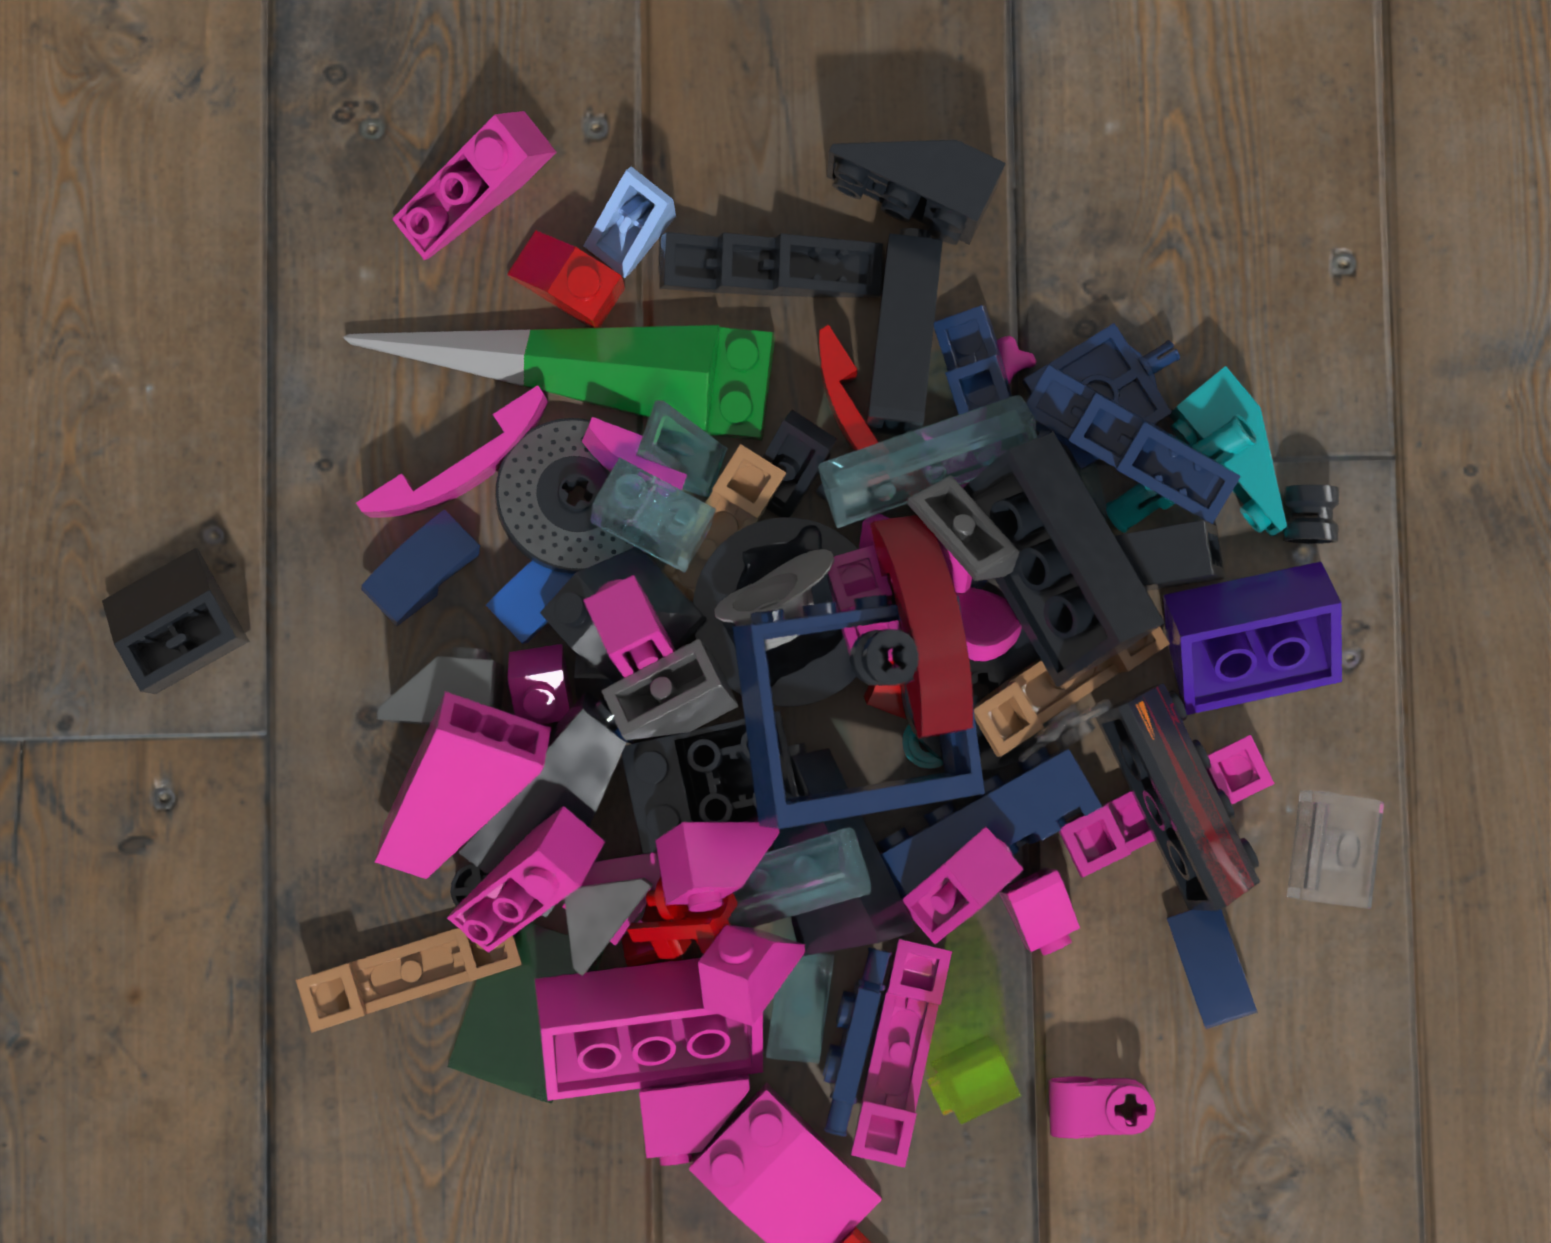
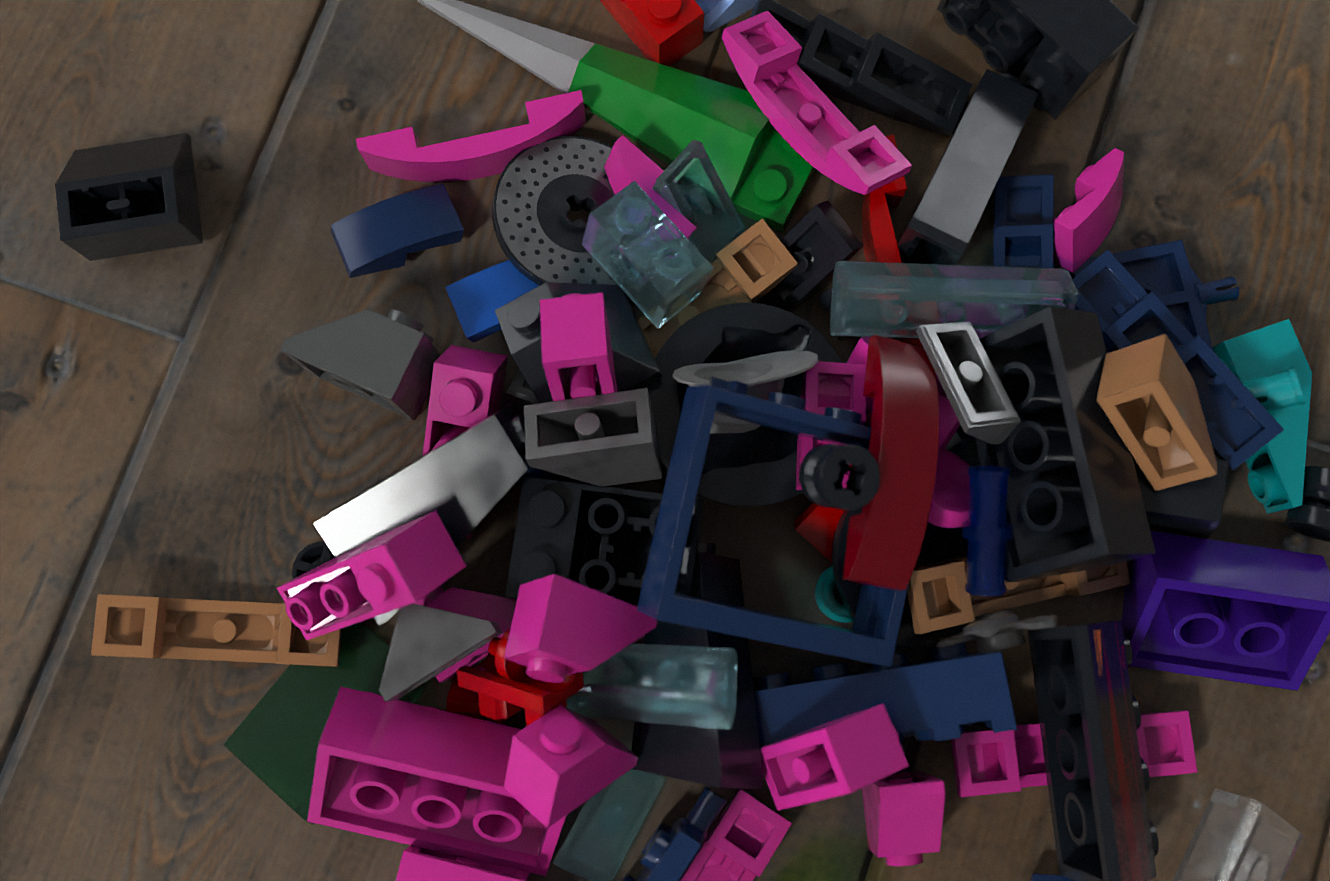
camera: 20 degrees right, 5 degrees down
(458, 781) = (340, 444): dark pink slope -> none
(743, 333) = (803, 114): none -> dark pink slope
(1024, 650) = (987, 530): none -> clear blue pin
(1030, 313) = (1087, 223): none -> dark pink slope
(1127, 503) = (1157, 412): none -> medium nougat slope

